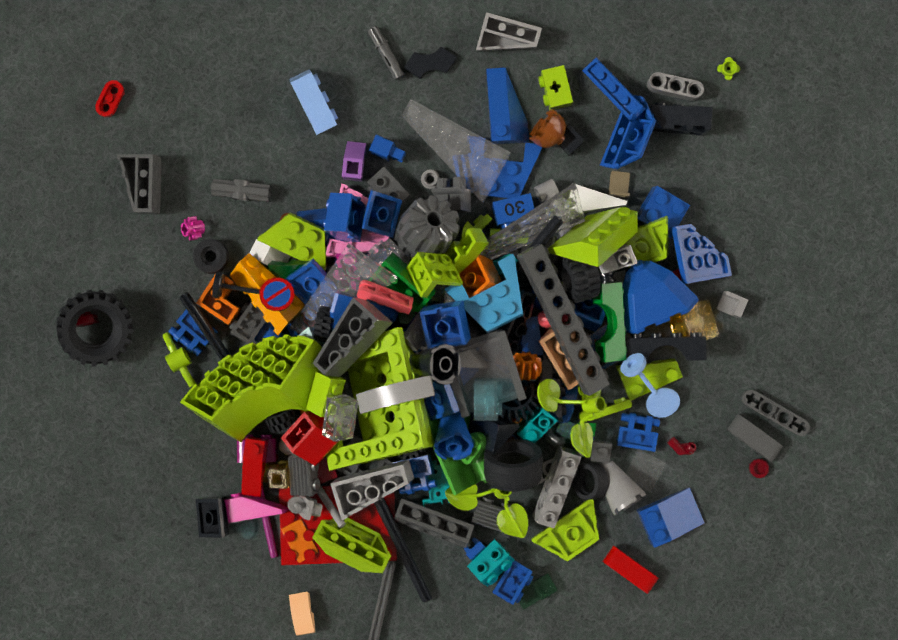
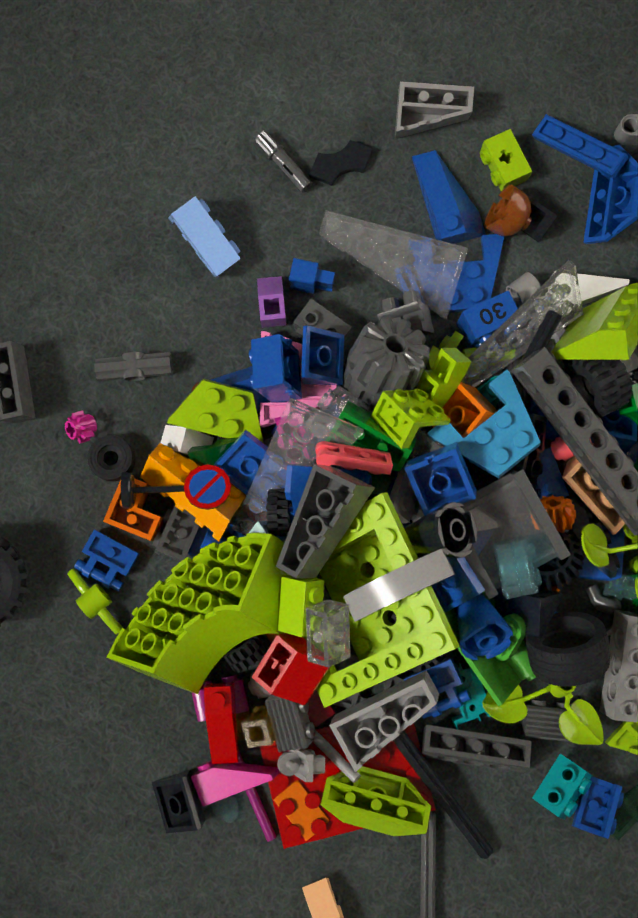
camera: 15 degrees left, 5 degrees down
(204, 325) = (119, 548): black axle -> none
(427, 173) = (371, 297): light grey plate -> none
(476, 550) = (538, 775): blue tile -> none
(536, 426) = (583, 589): teal slope -> none
(619, 184) = (611, 263): dark tan bracket -> none

